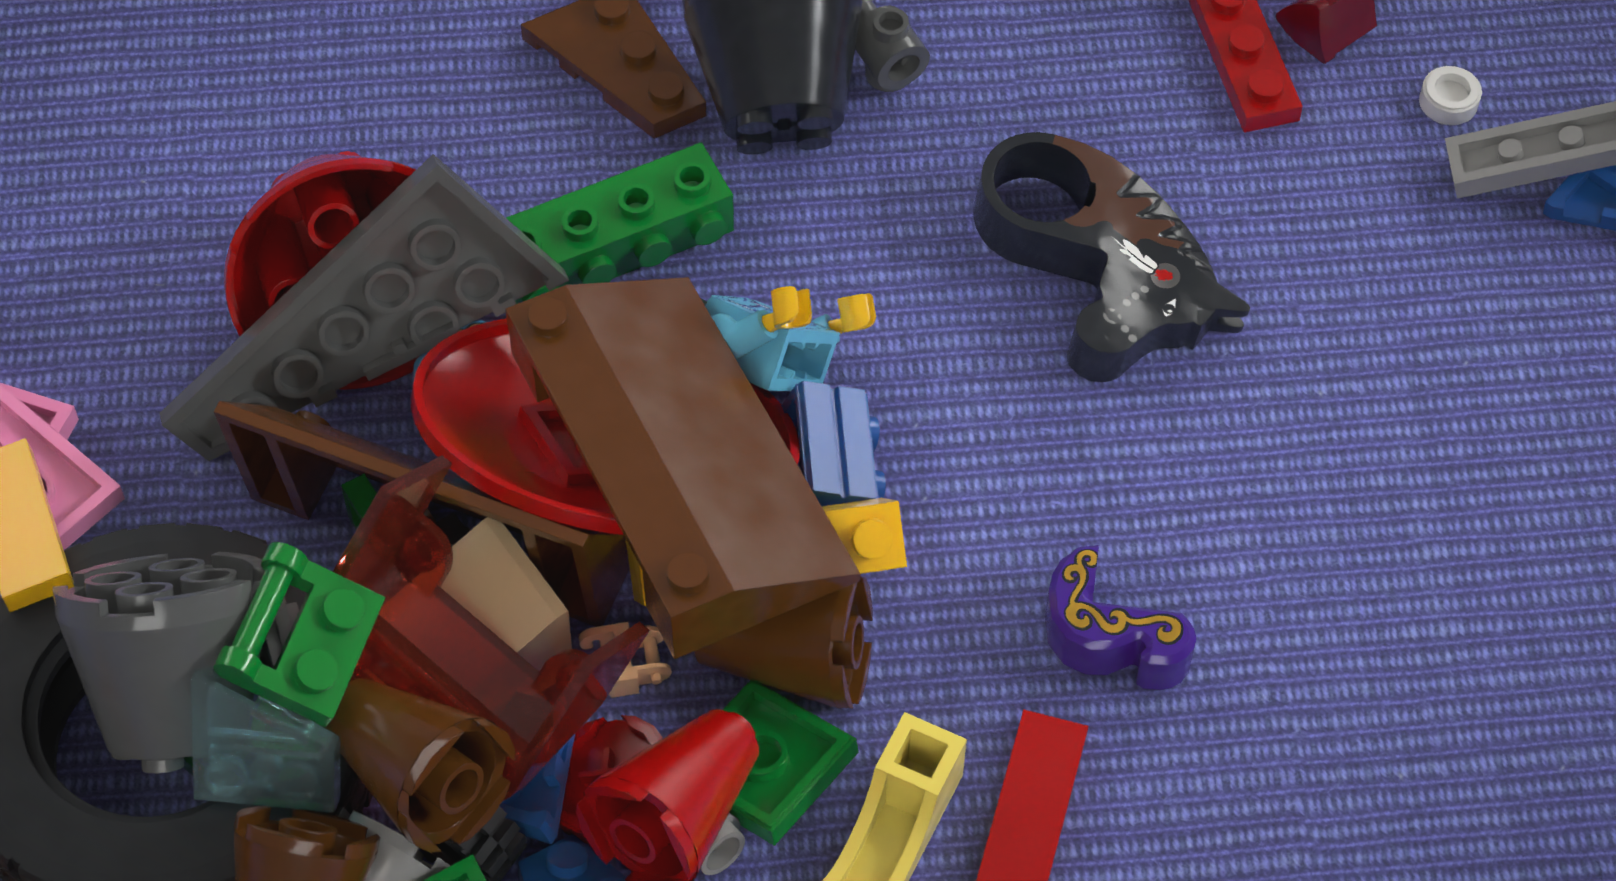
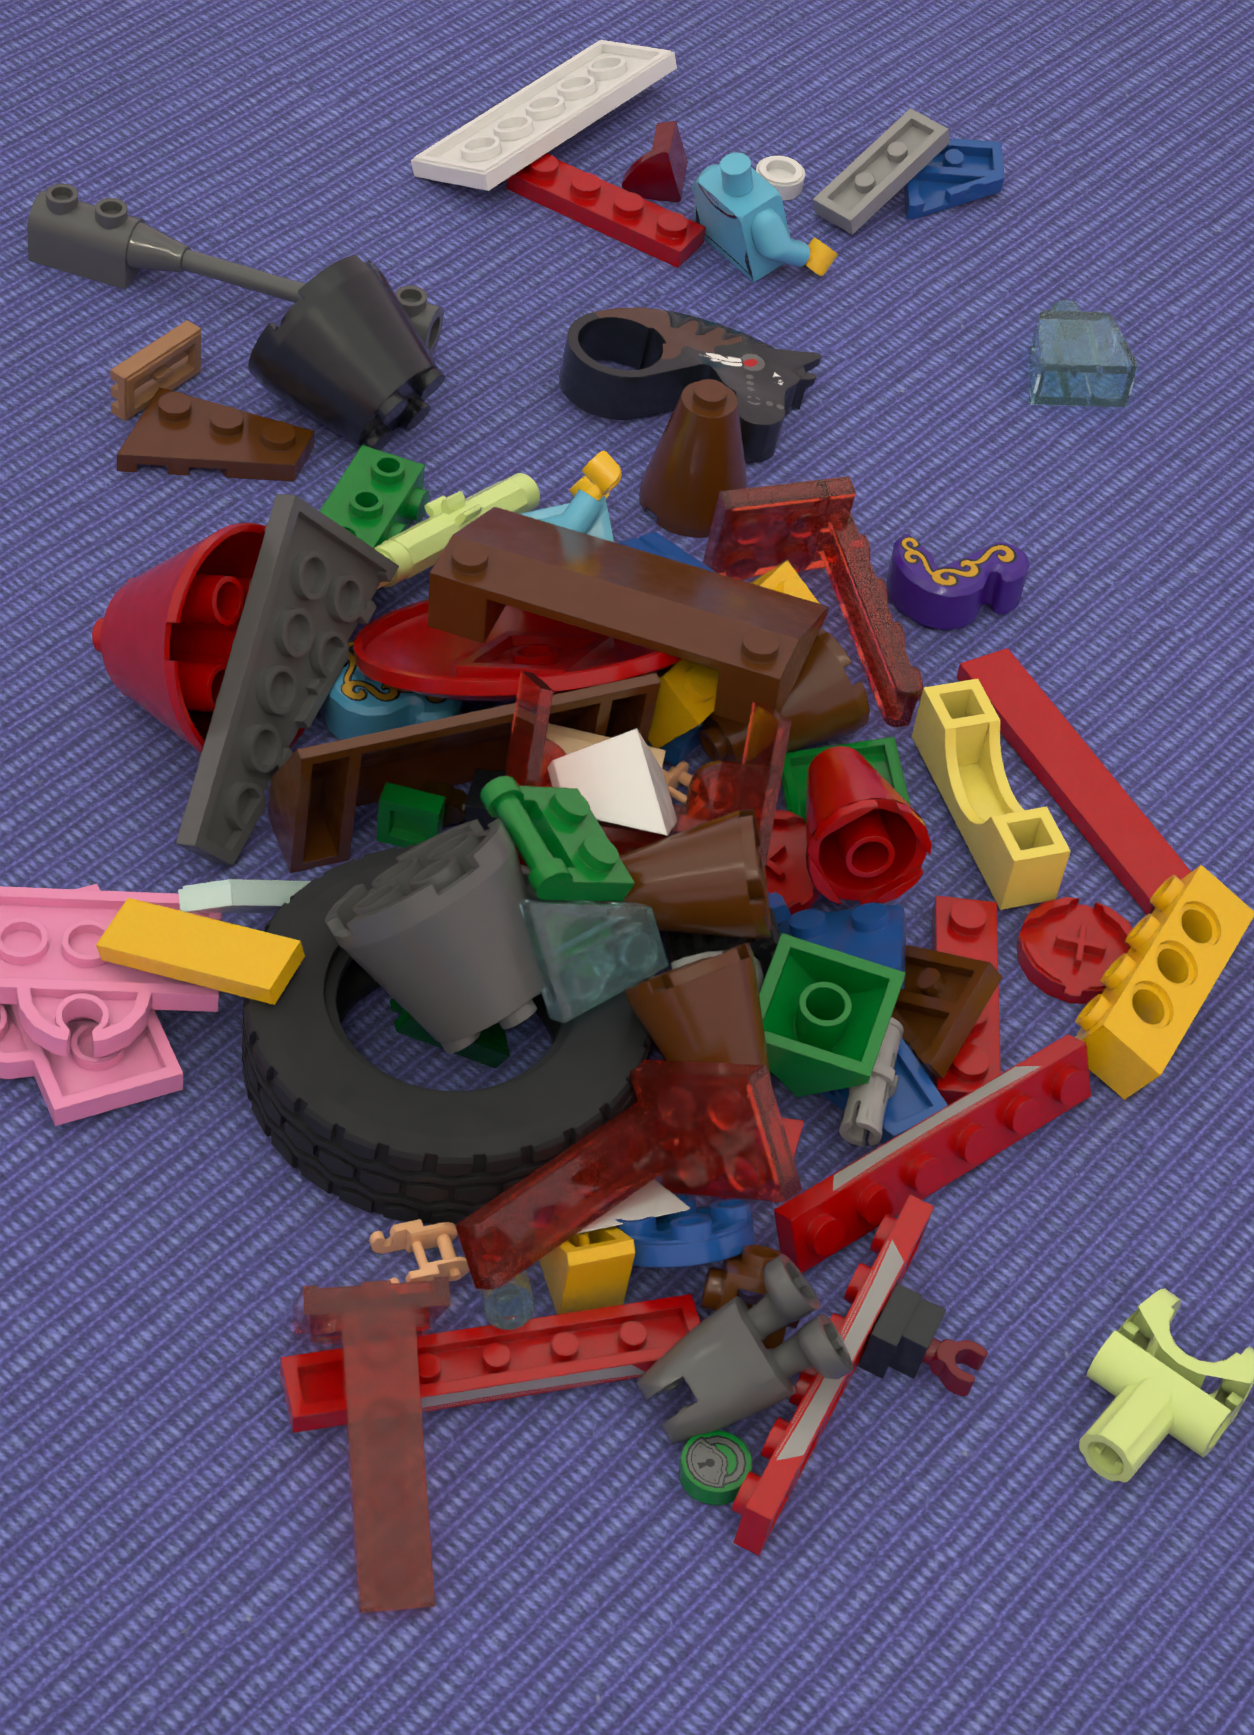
camera: 50 degrees left, 10 degrees down
(118, 500) = (238, 896): none -> light aqua tile
(455, 628) = (619, 783): none -> white slope
(705, 263) = (424, 542): none -> yellowish green piece
(986, 354) = (695, 460): none -> reddish brown cone
(996, 478) = (815, 530): none -> clear red bracket
(1331, 126) = (749, 221): none -> medium azure torso
(1521, 470) = (1079, 359): none -> clear light blue torso

